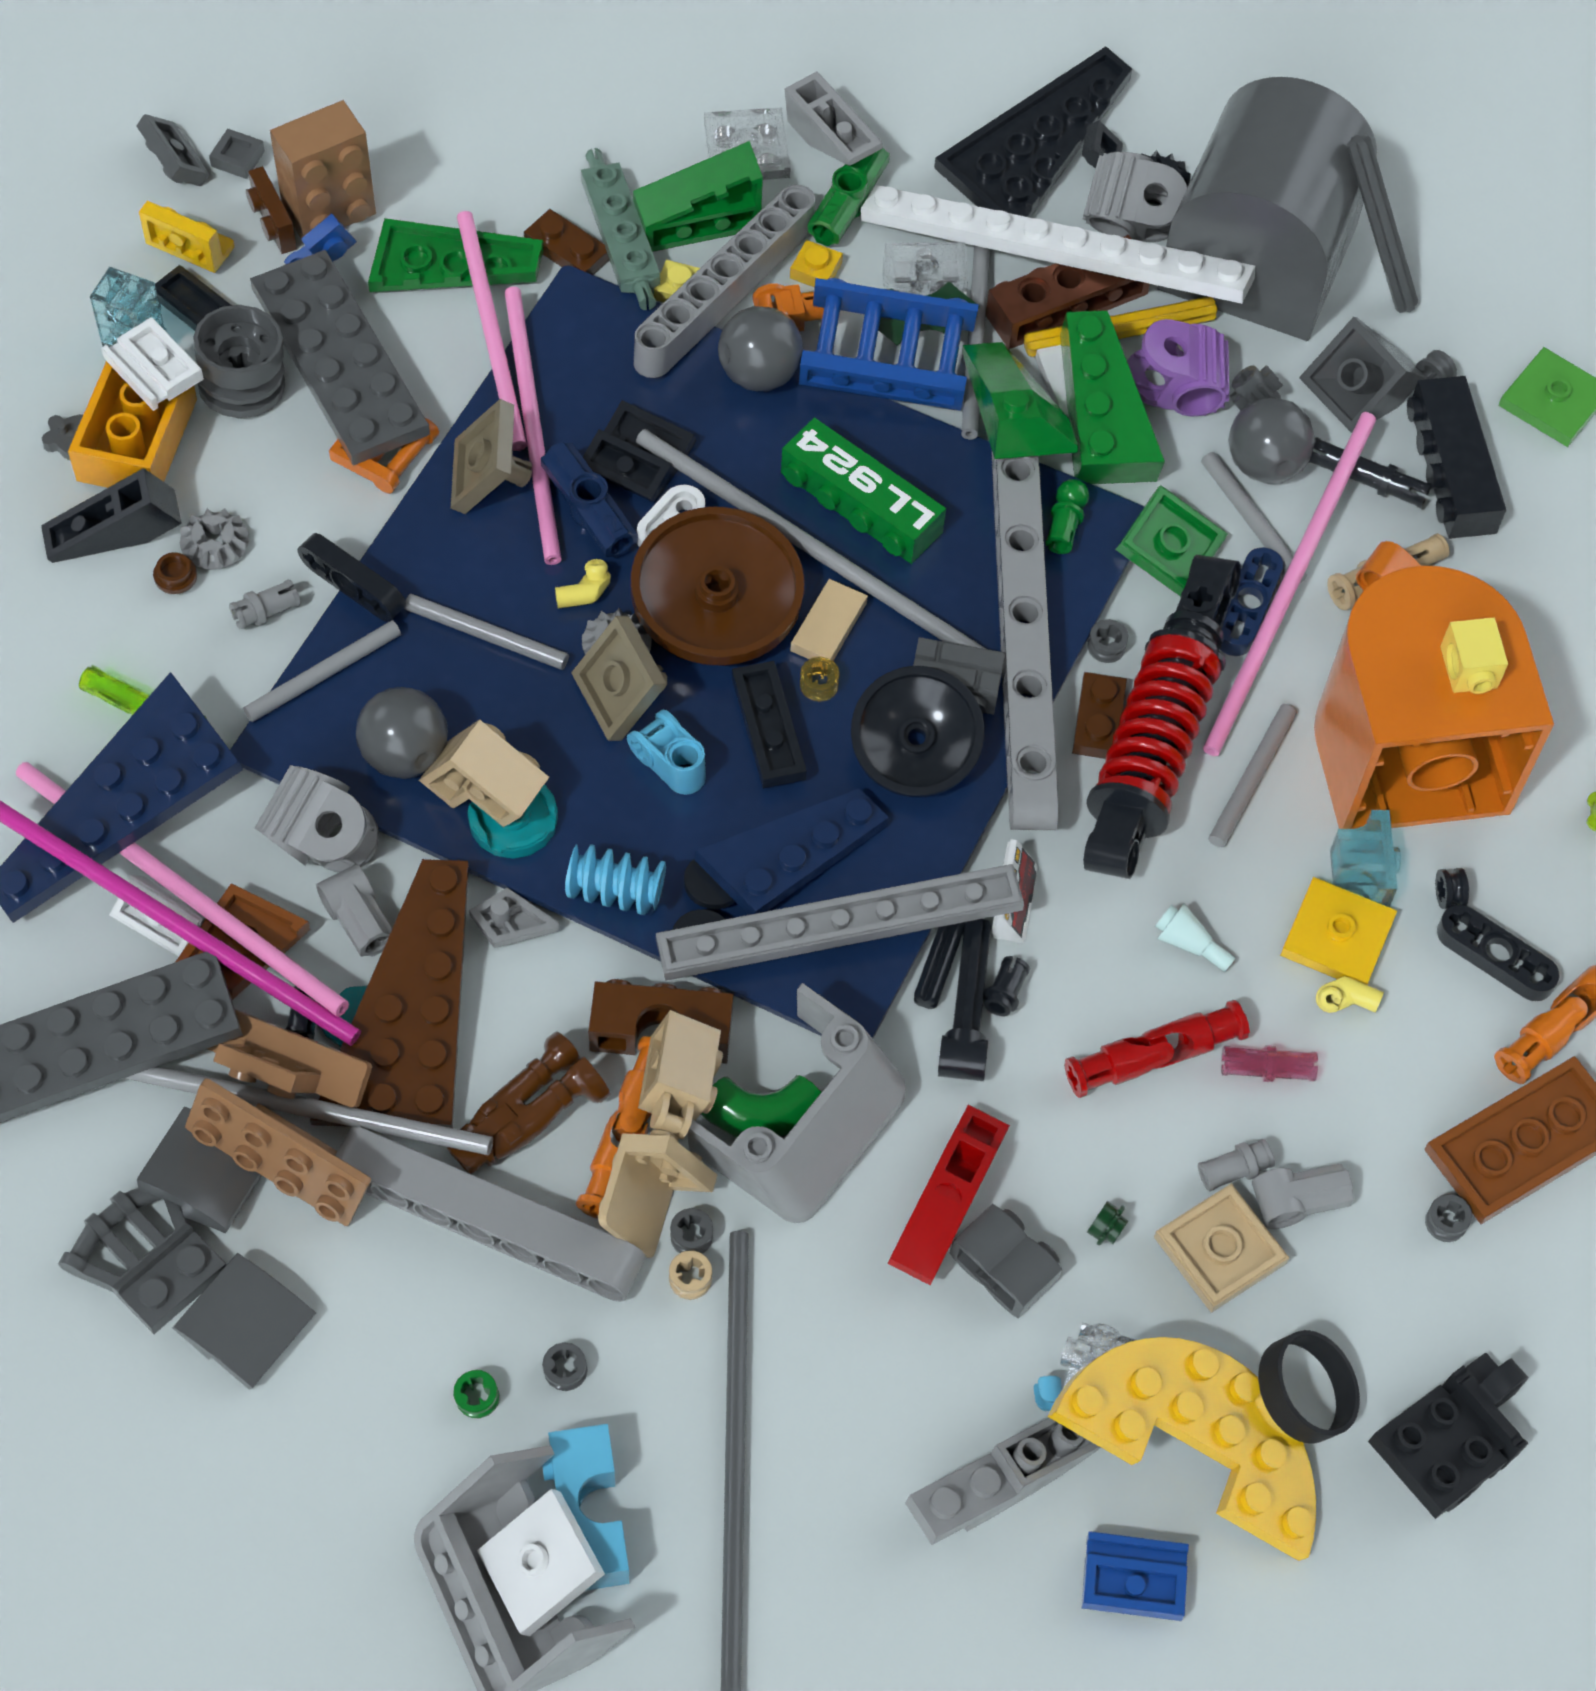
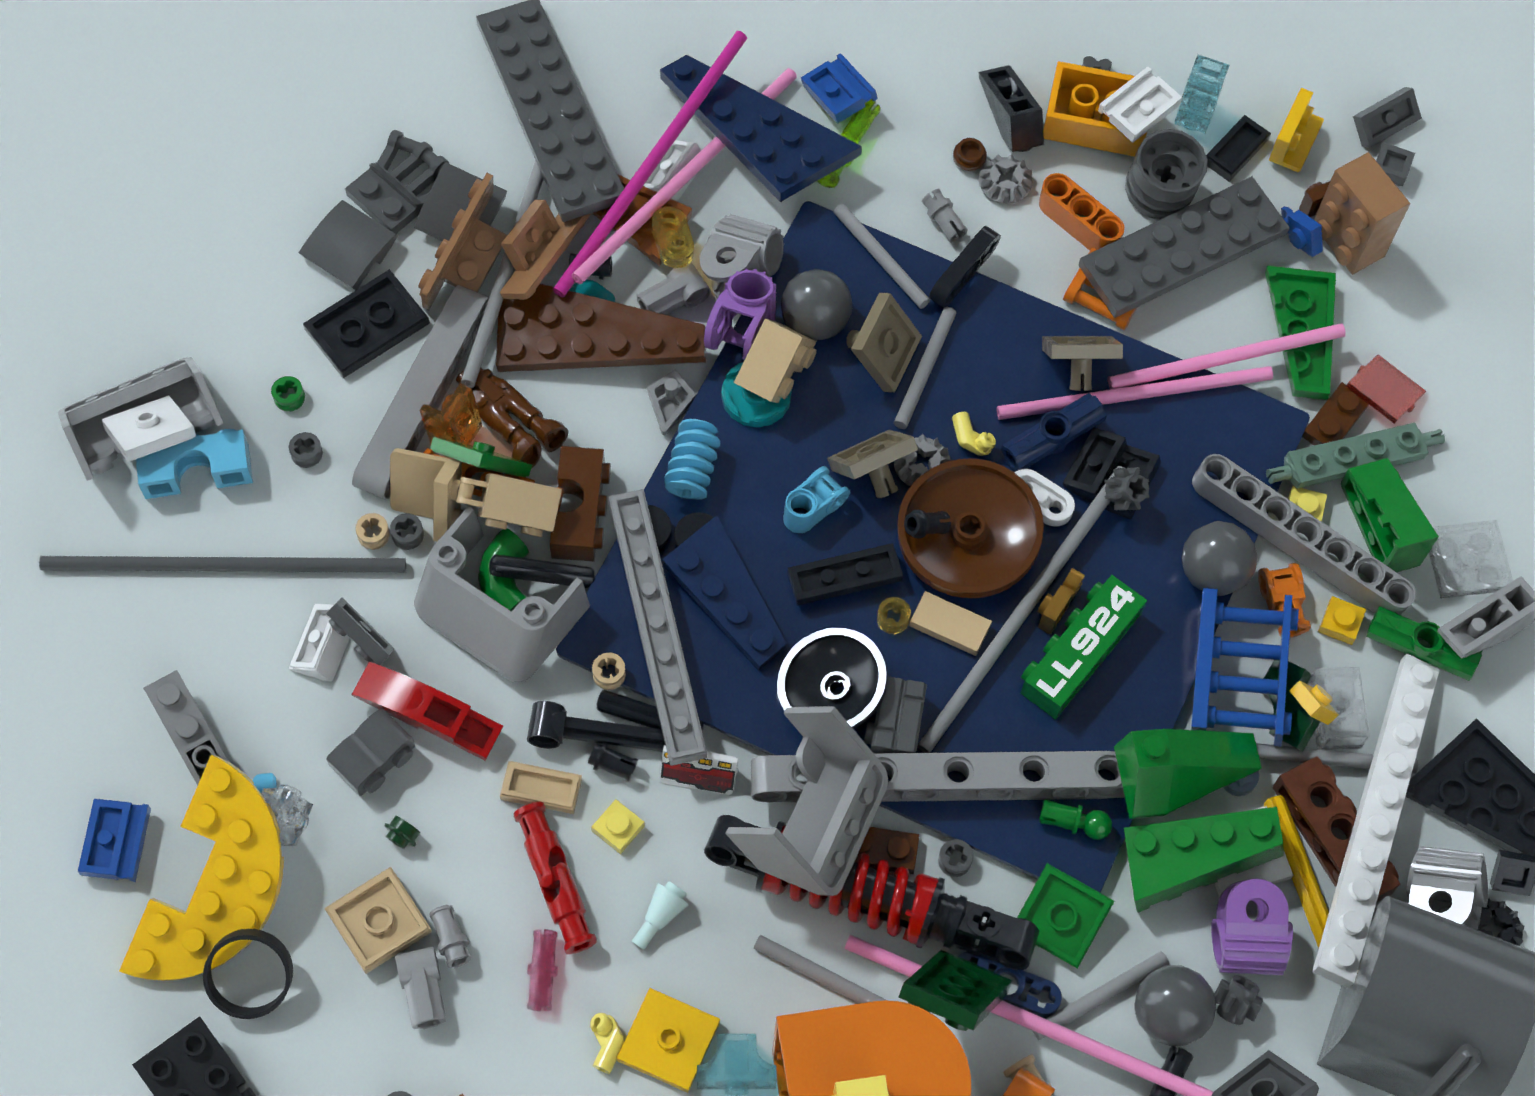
camera: 90 degrees right, 5 degrees up
(61, 707) = (838, 88): none -> blue plate
(280, 459) = (1075, 201): none -> orange beam
(280, 899) = (670, 230): none -> clear yellow plate
(370, 1296) = (366, 323): none -> black tile
(399, 793) = (747, 294): none -> medium lavender piece
(462, 662) = (885, 342): none -> dark tan tile
(533, 194) = (1385, 388): none -> clear red piece
(550, 1160) = (457, 420): none -> clear orange bracket
(608, 1120) = (481, 456): none -> green plate
(674, 424) = (1127, 488): none -> dark grey gear
(718, 625) = (920, 524): none -> black pin
(762, 1058) = (539, 570): none -> black axle
(810, 510) = (1055, 606): none -> pearl gold plate
(846, 1334) = (319, 647): none -> white slope
(858, 1264) = (349, 622): none -> dark grey plate
(901, 994) = (604, 660): none -> tan bush
(934, 276) = (1314, 701): none -> yellow plate
(1038, 1070) = (537, 784): none -> tan tile
(1085, 984) = (618, 826): none -> light yellow plate
(1093, 729) = (832, 811): none -> light grey windscreen
(1299, 606) = (955, 990): none -> dark green plate

